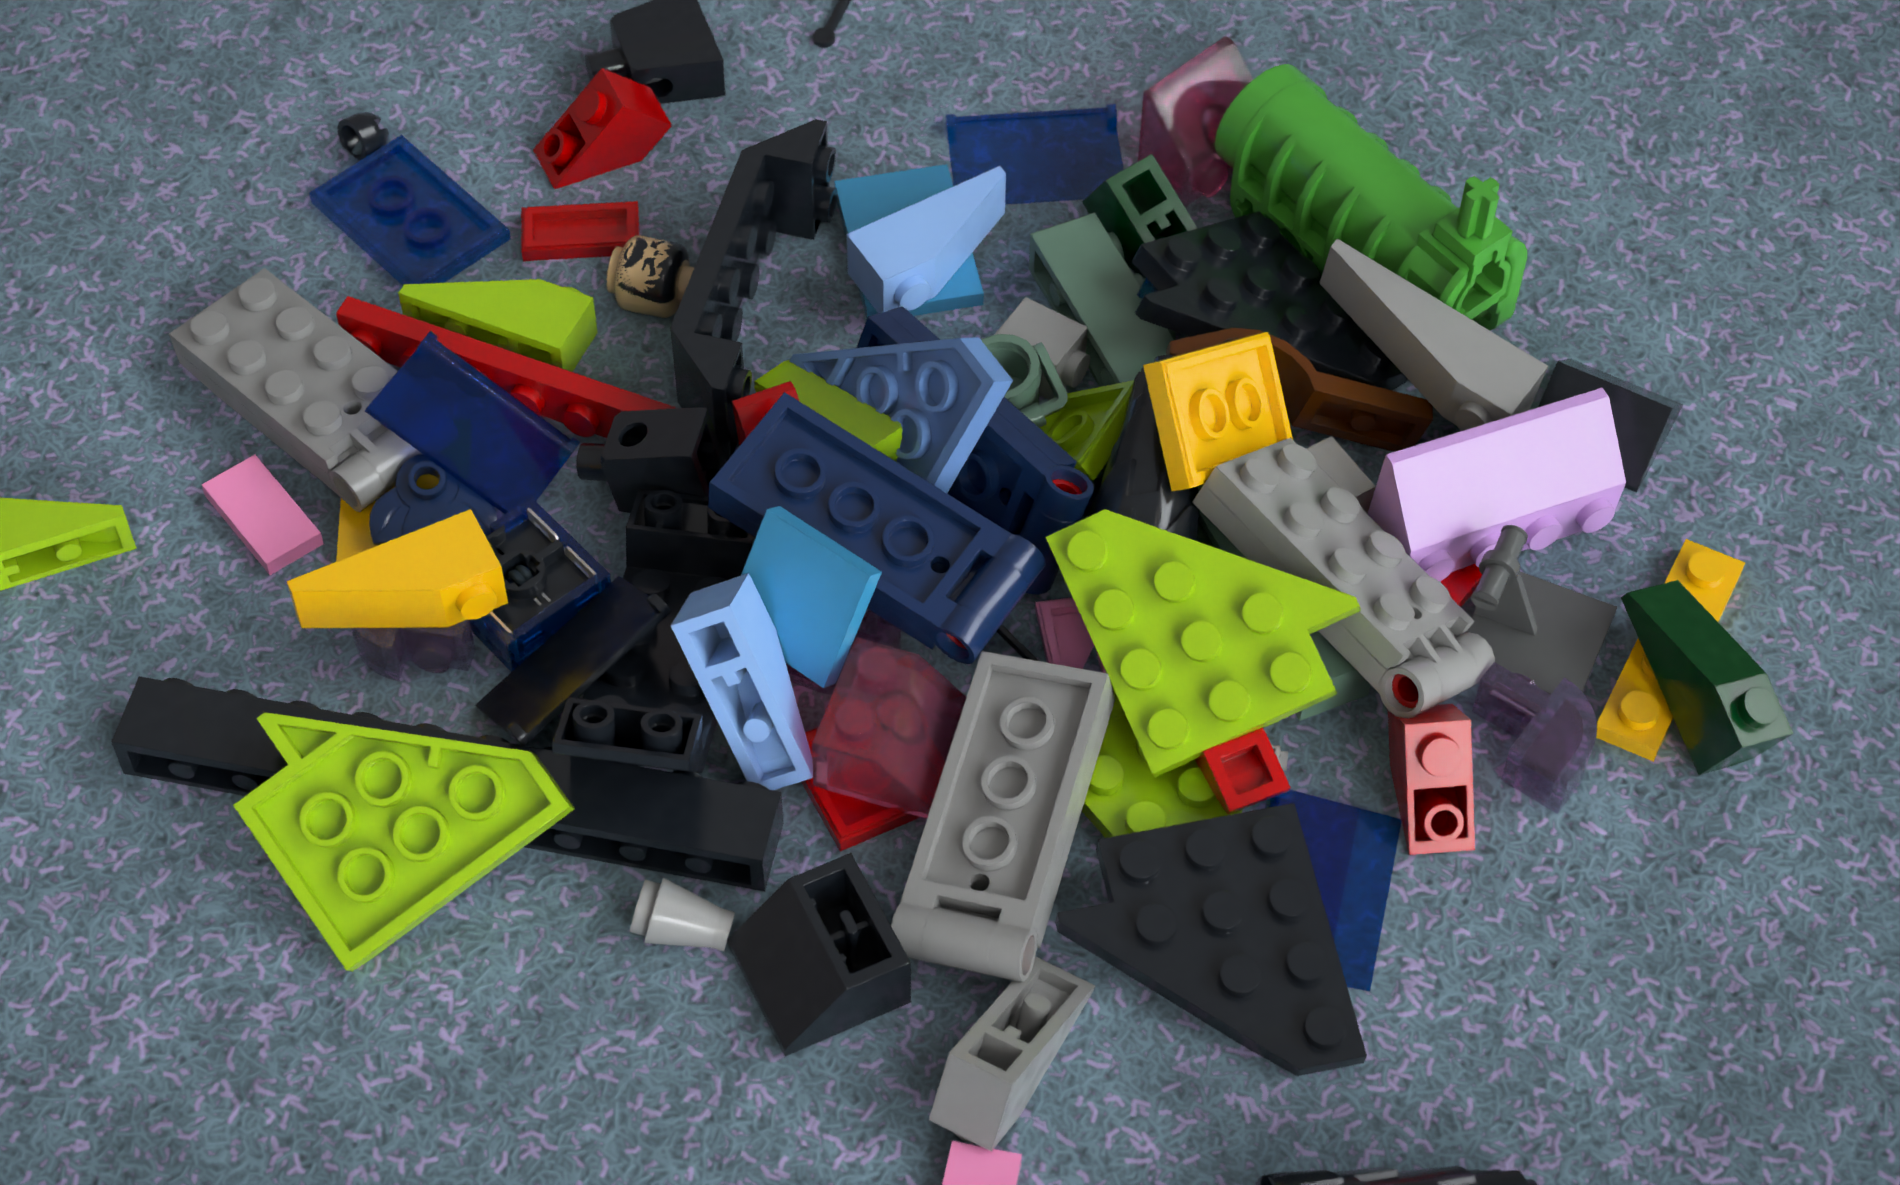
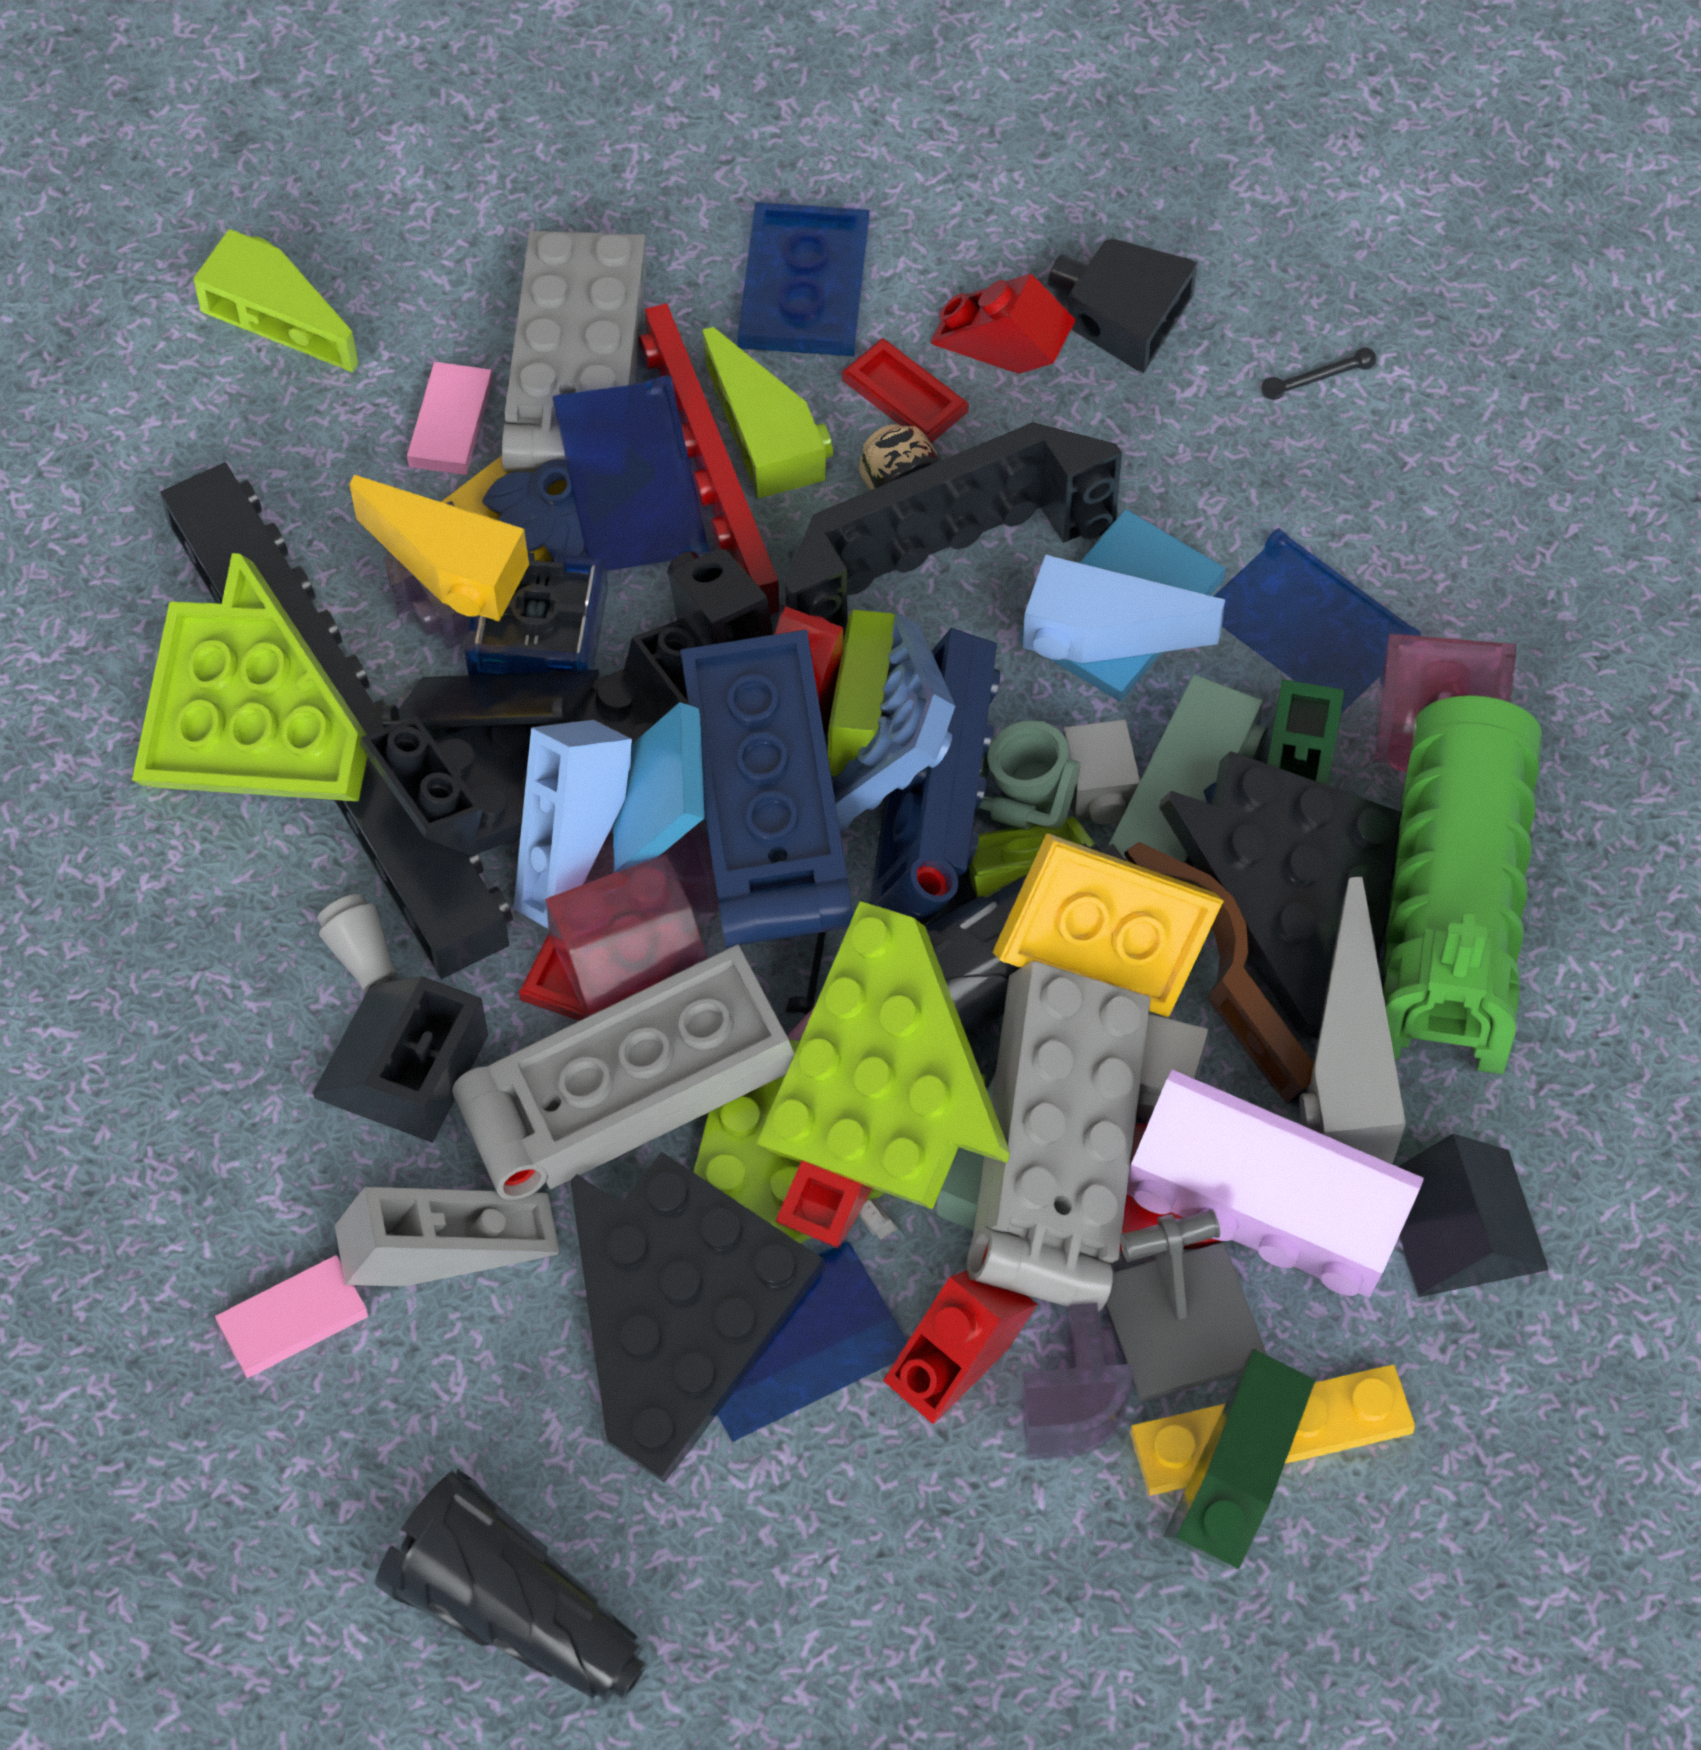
camera: 50 degrees right, 5 degrees up
(362, 128) = (841, 187): black hinge -> none

